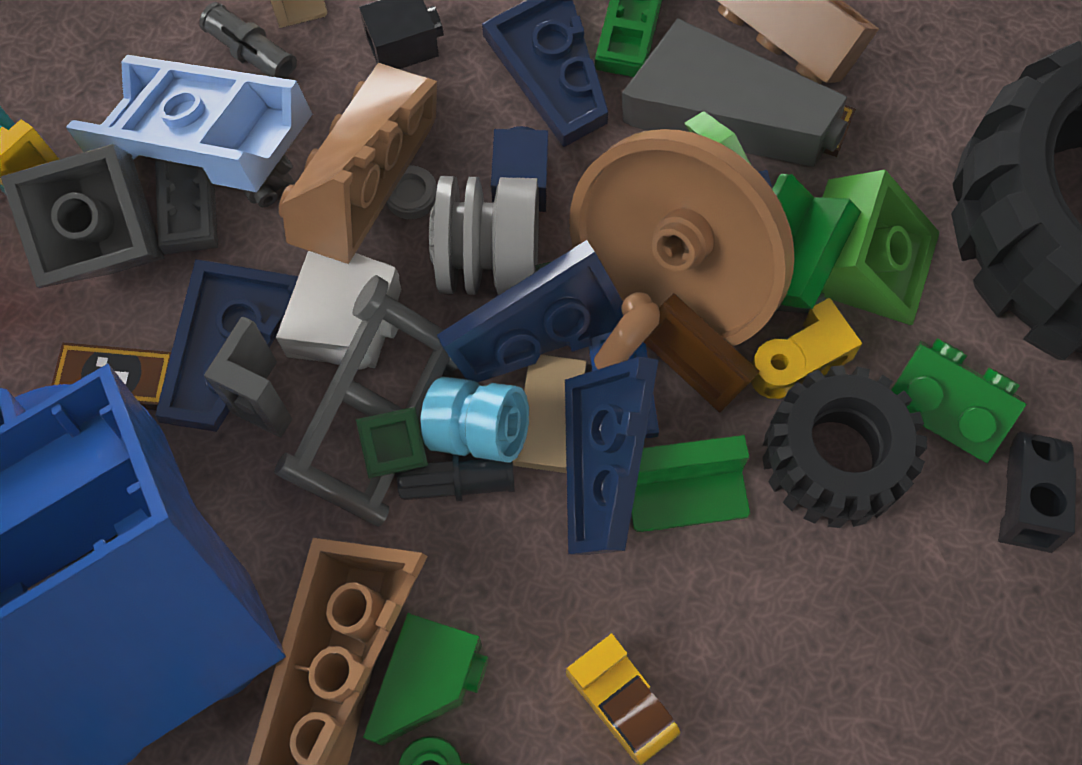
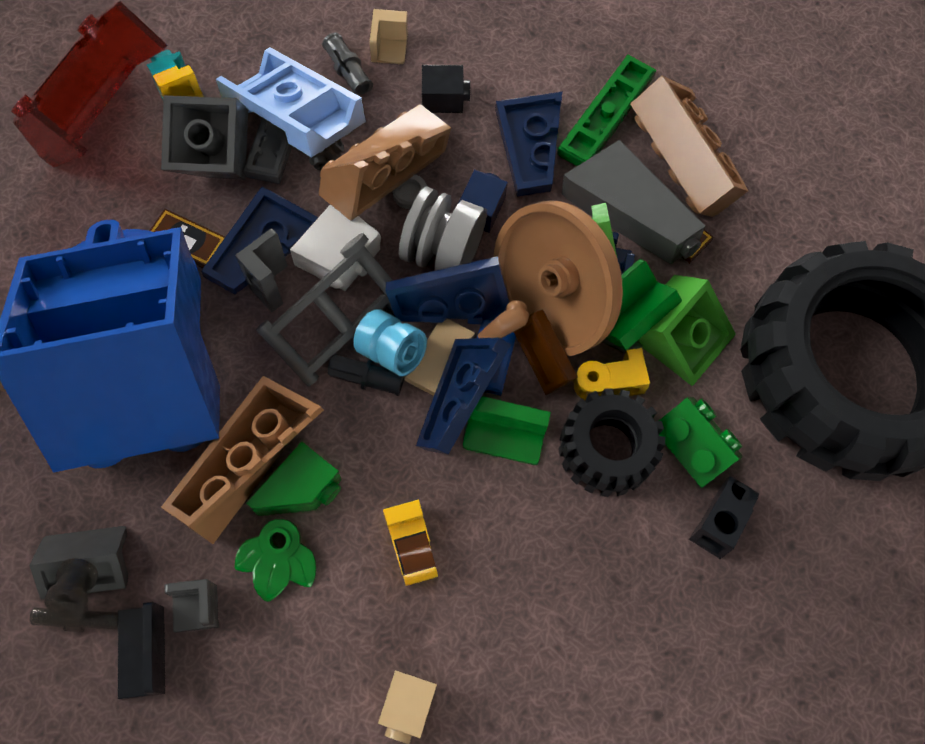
camera: 15 degrees right, 0 degrees up
(391, 442) = (333, 337): dark green tile -> none

